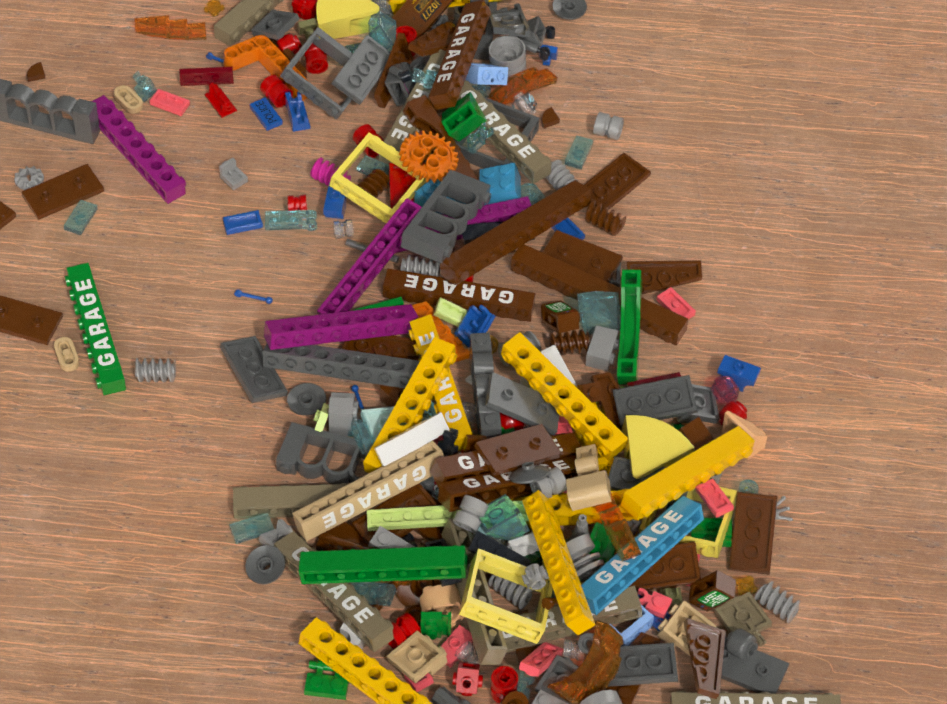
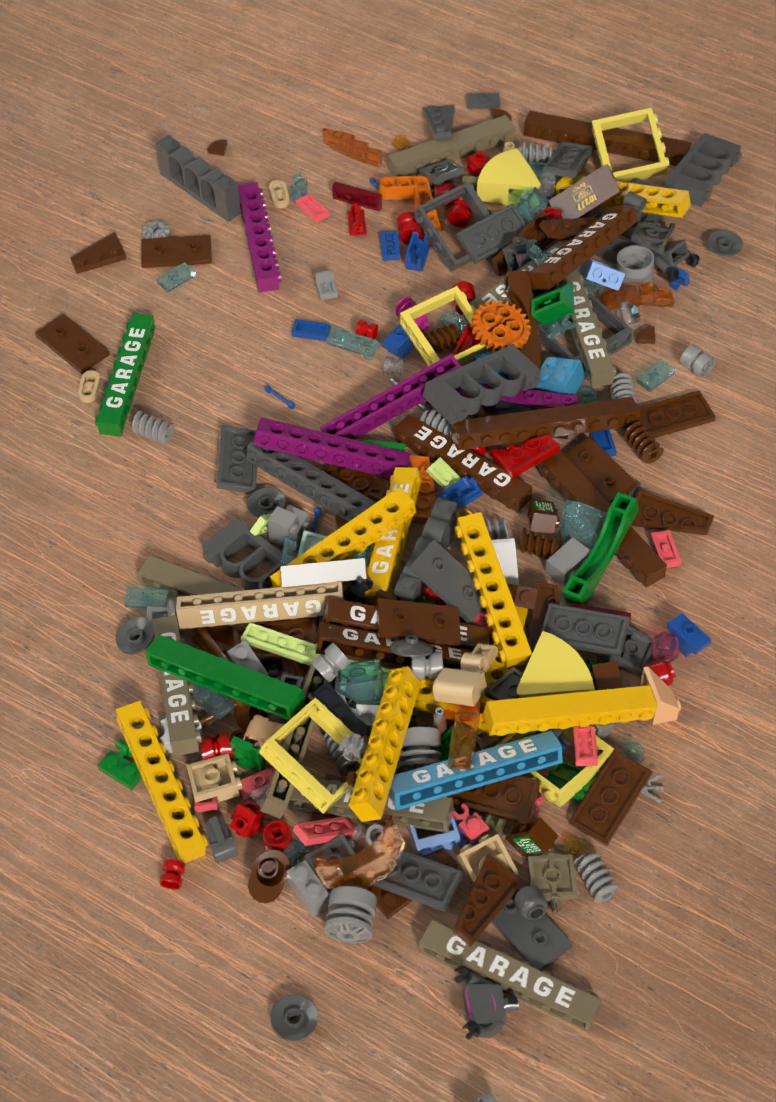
camera: 30 degrees right, 0 degrees up
(514, 268) = (525, 456): none -> red wing

